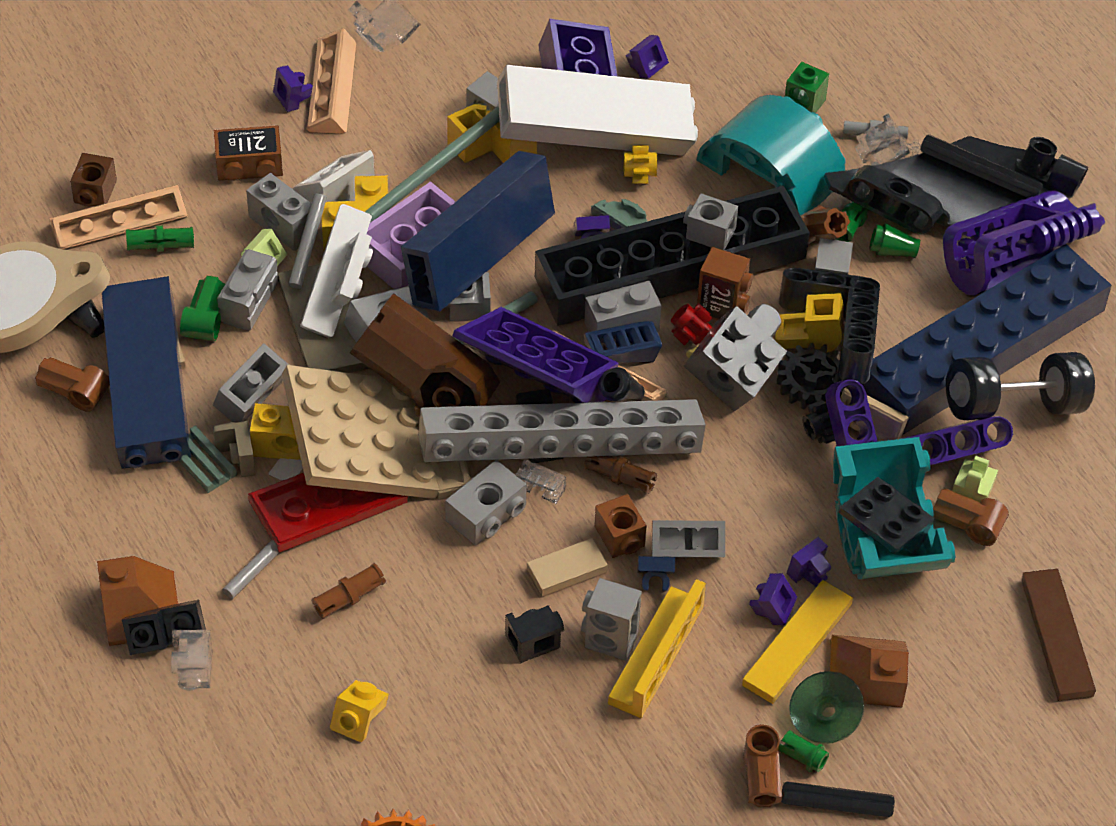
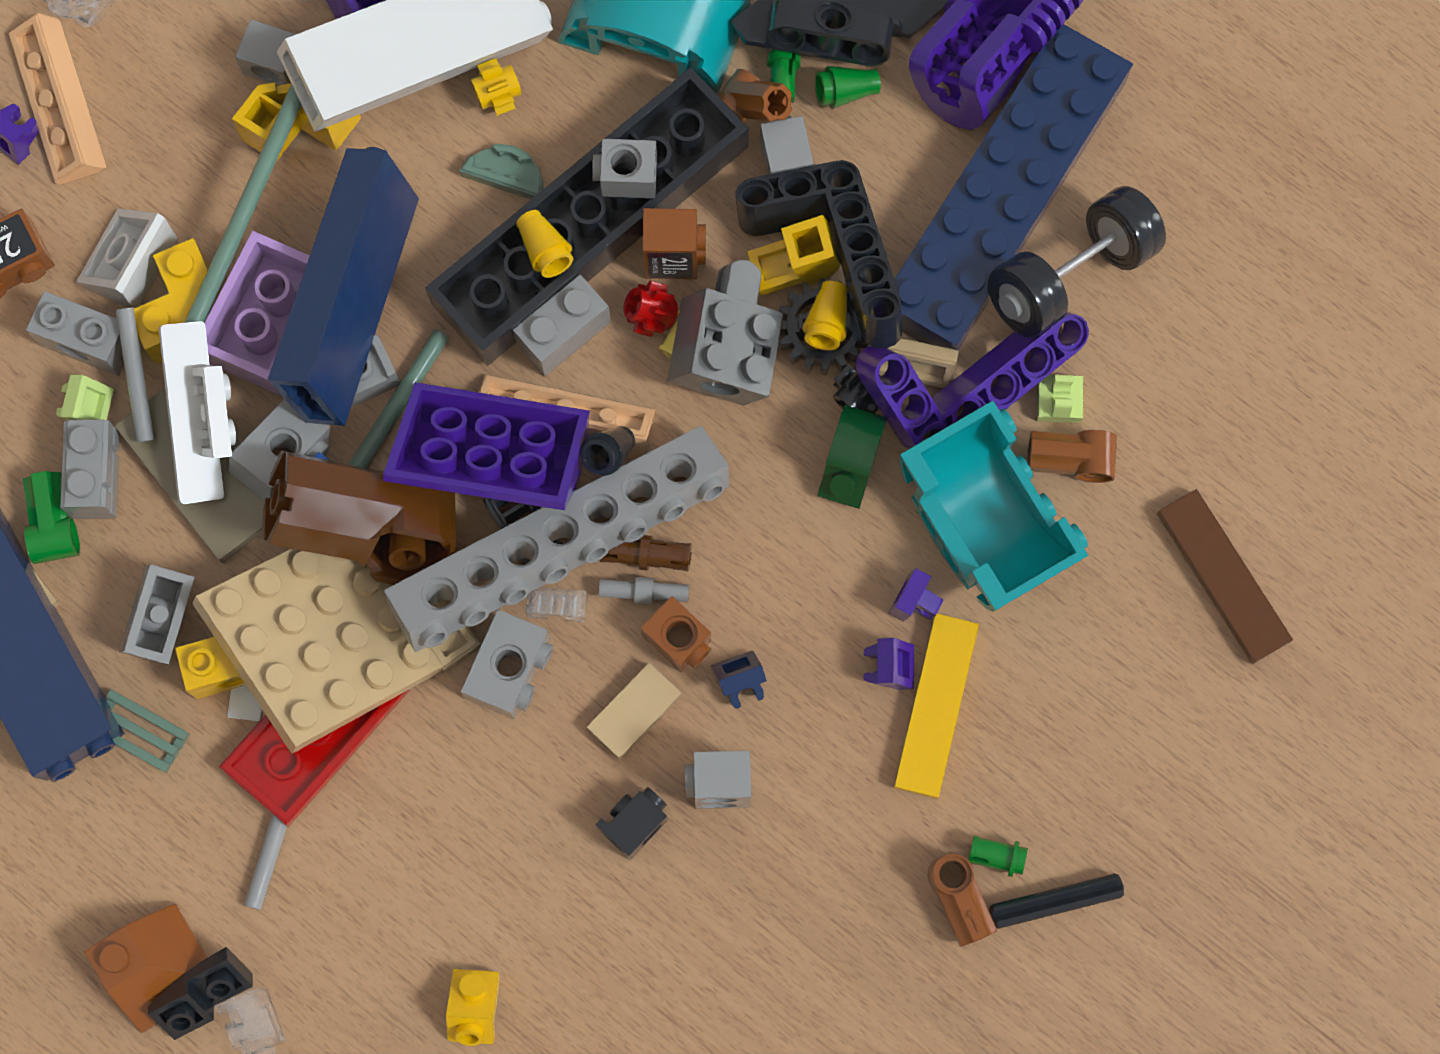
camera: 20 degrees left, 25 degrees up
(236, 439) = (184, 707): dark tan bracket -> none
(348, 591) = (394, 851): dark orange pin -> none
(591, 225) = (473, 205): dark purple tile -> none
(603, 492) = (643, 590): none -> light grey bar
(631, 248) = (544, 244): none -> yellow cone
(641, 334) = (601, 353): dark blue slope -> none
(657, 649) = (781, 784): yellow fence -> none
(688, 538) = (765, 627): light grey brick -> none
(800, 454) = (851, 456): none -> dark green brick
(816, 360) = (827, 318): none -> yellow cone
(817, 694) = (998, 813): clear green dish -> none
(874, 665) = (1030, 711): dark orange slope -> none
(888, 517) = (990, 521): black bracket -> none

